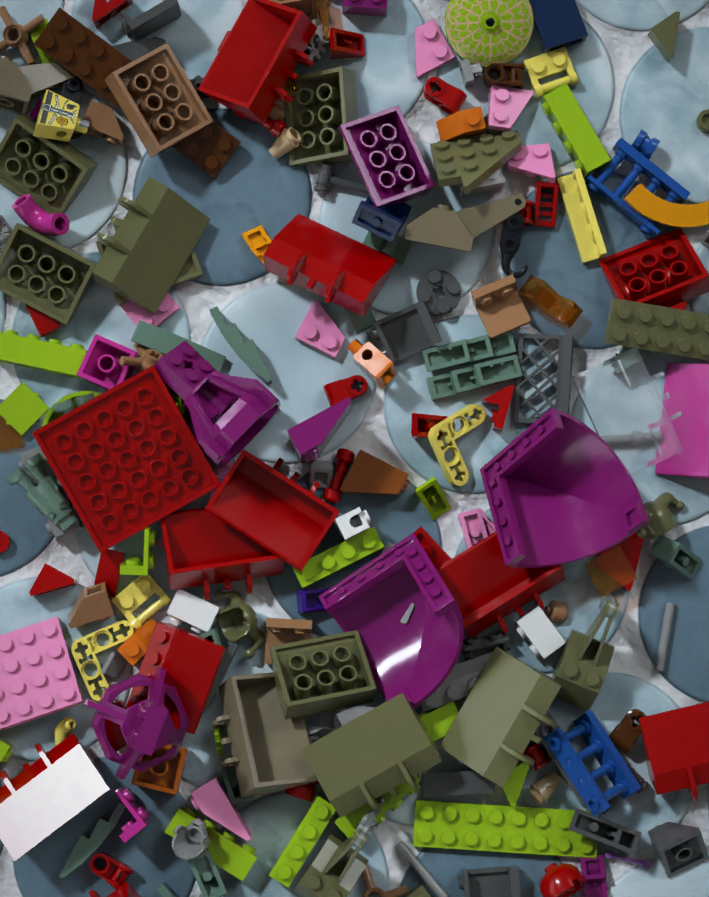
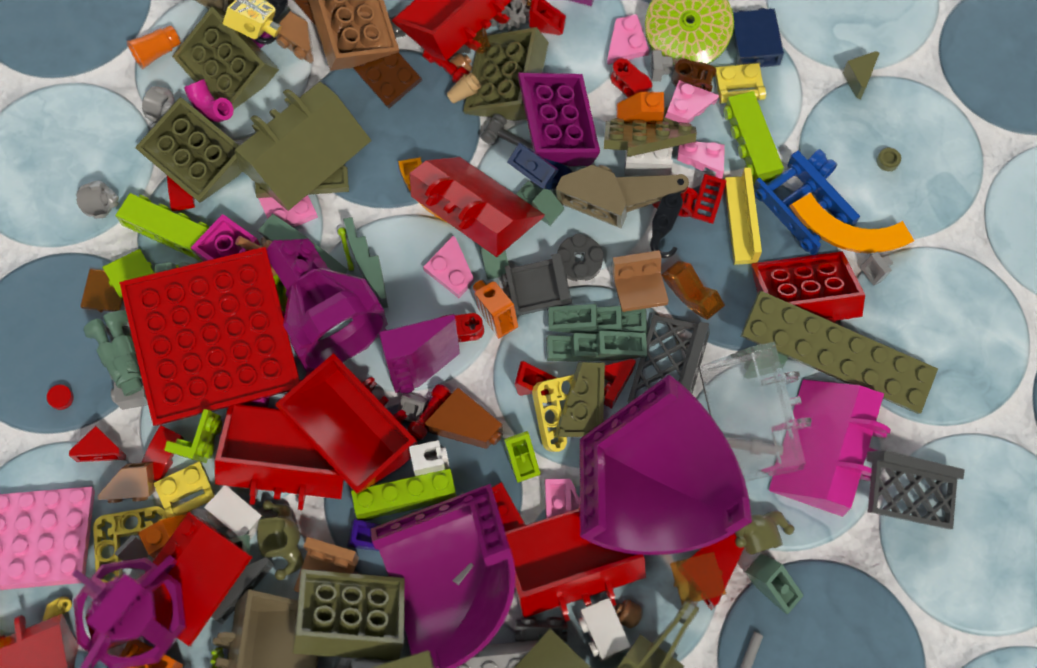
camera: 20 degrees right, 15 degrees down
(208, 319) = (342, 232): none -> lime hinge
(476, 436) = (584, 401): none -> olive wing

